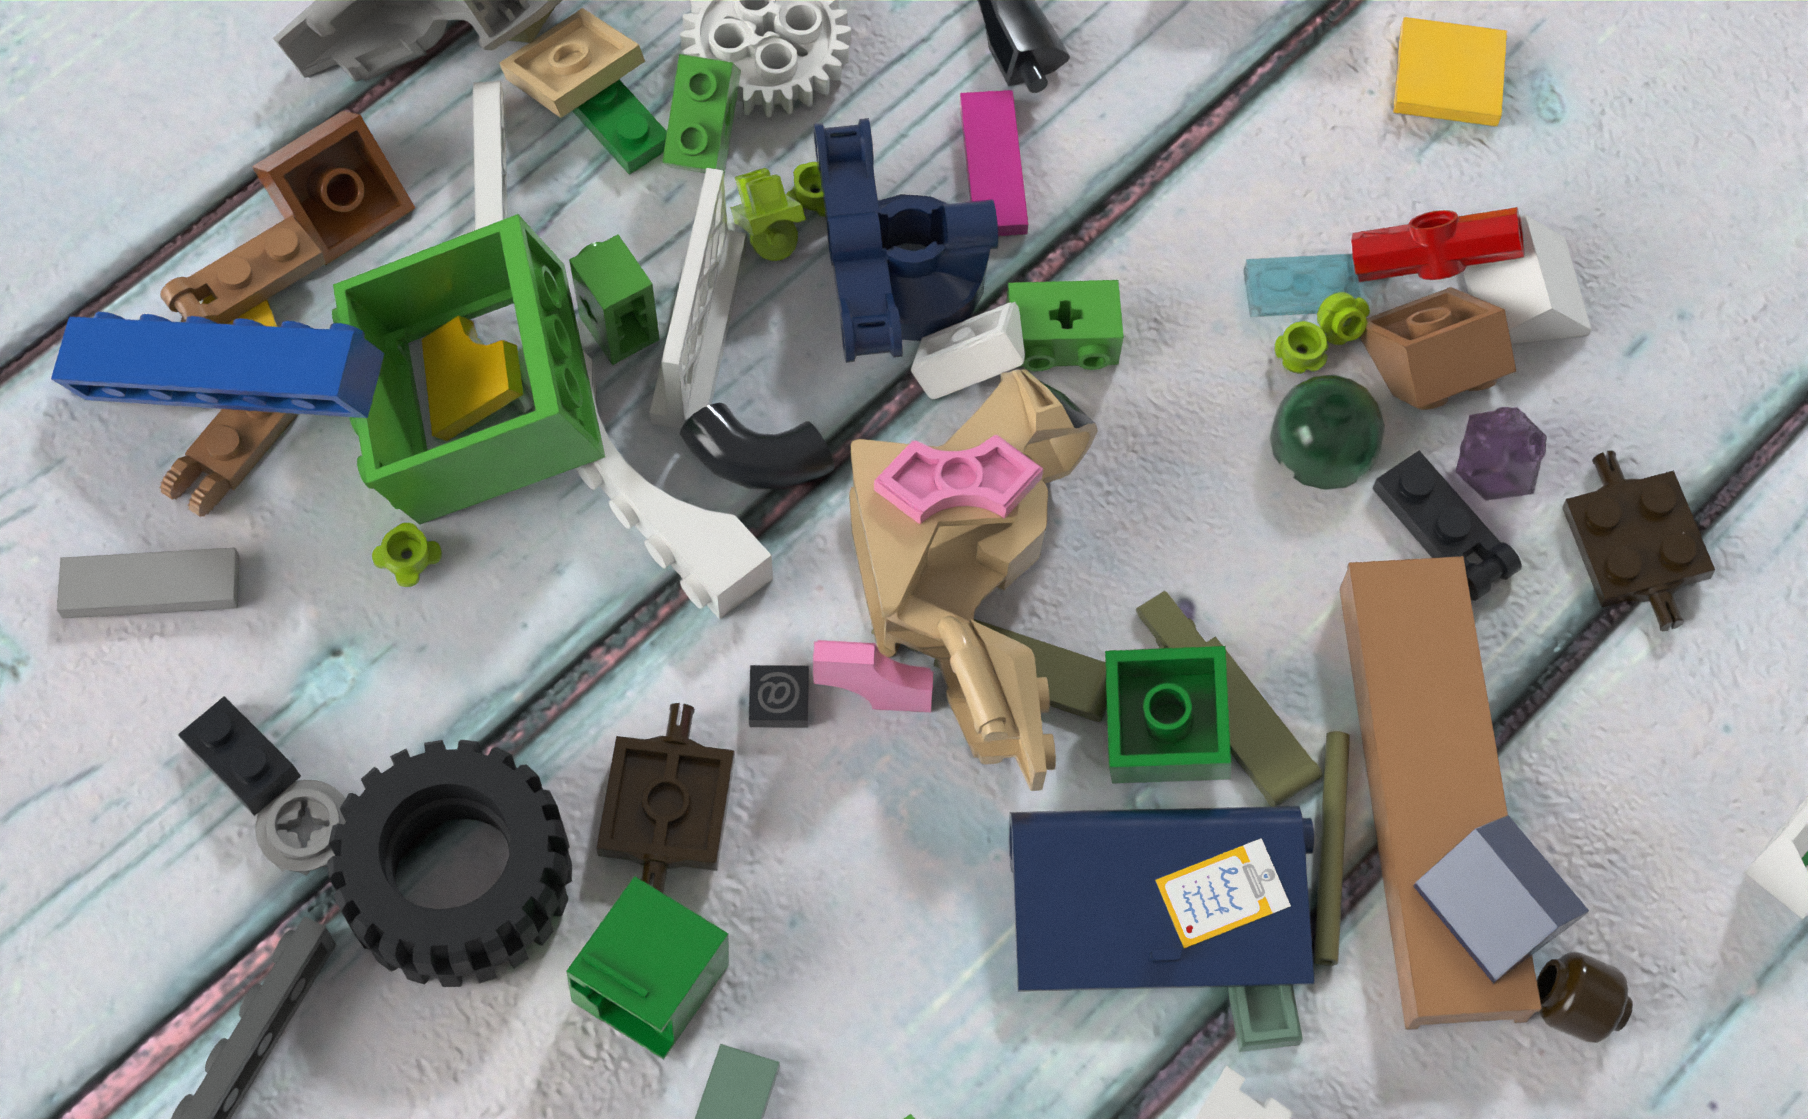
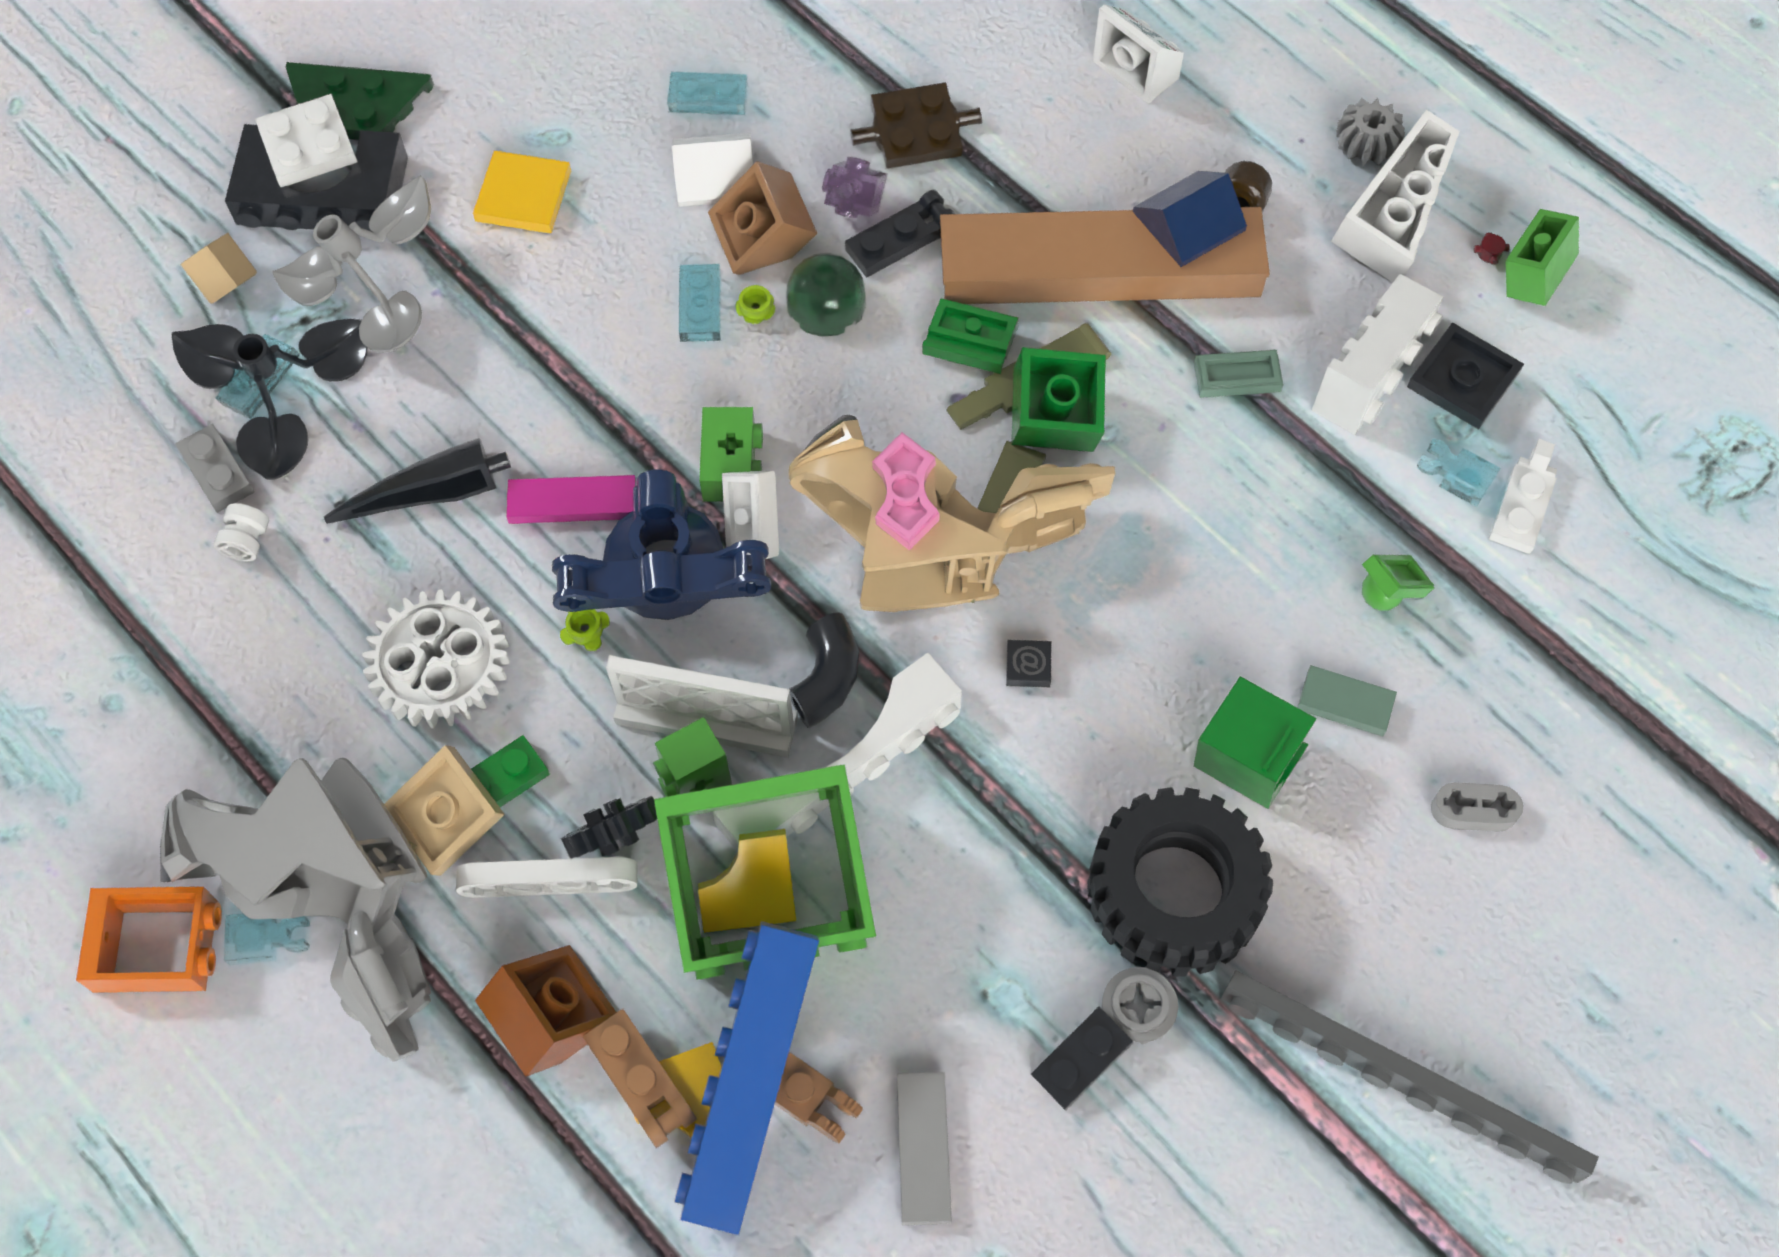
camera: 85 degrees left, 0 degrees up
(401, 539) = (903, 924): lime plate -> none
(537, 206) = (603, 830): none -> black gear
(666, 801) = (1118, 739): dark brown plate -> none
(701, 114) = (520, 698): bright green brick -> none
(767, 214) = (616, 641): lime hips -> none
(873, 675) = (1028, 585): bright pink tile -> none
(1197, 888) = (1174, 422): dark blue door -> none
(1279, 613) = (970, 336): none -> green plate
(1332, 849) = (1140, 323): olive piece -> none
(1343, 317) = (735, 274): lime plate -> none
(1438, 244) = (687, 203): red piece -> none
(1650, 274) = (707, 93): none -> clear light blue plate

